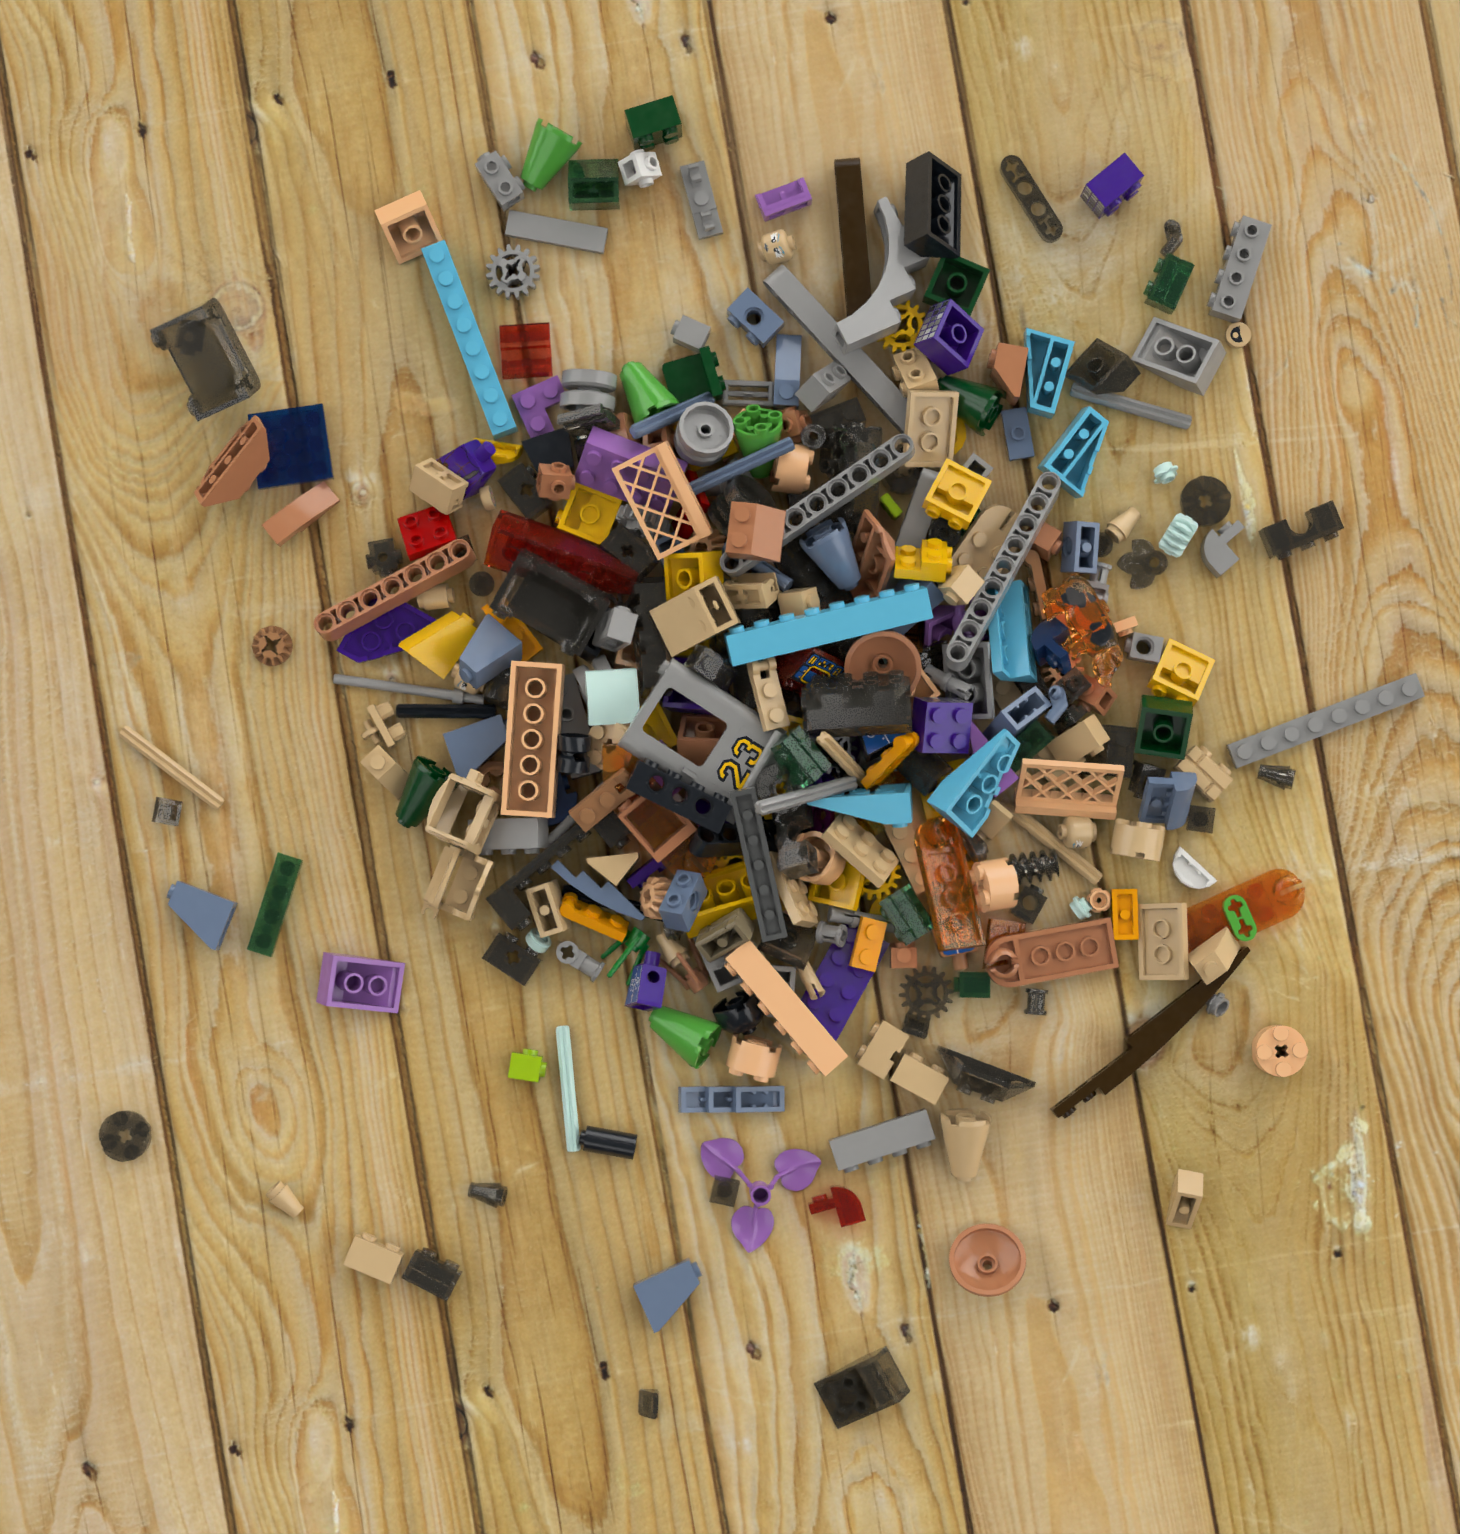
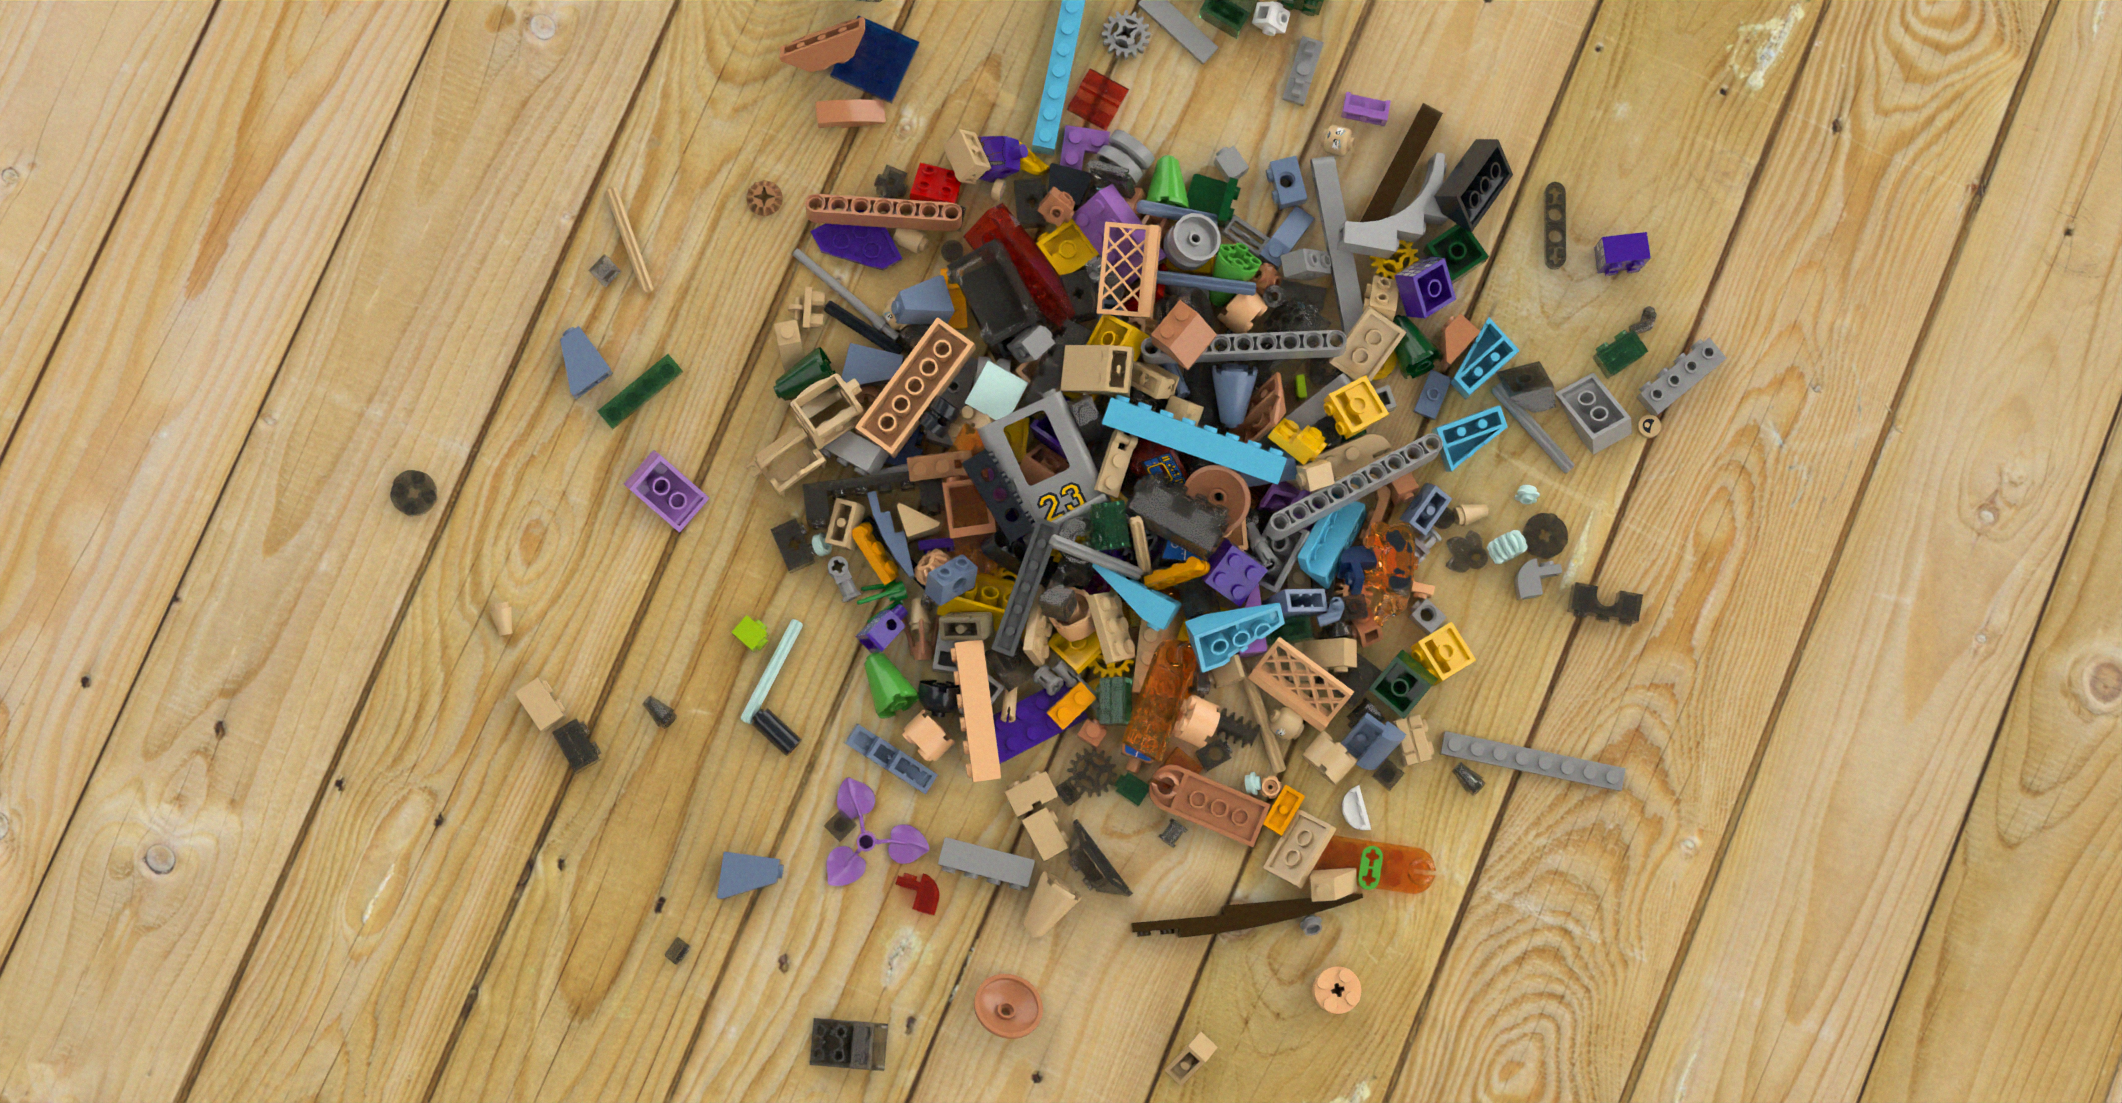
camera: 25 degrees right, 5 degrees down
(441, 642) = (892, 273): yellow slope -> none

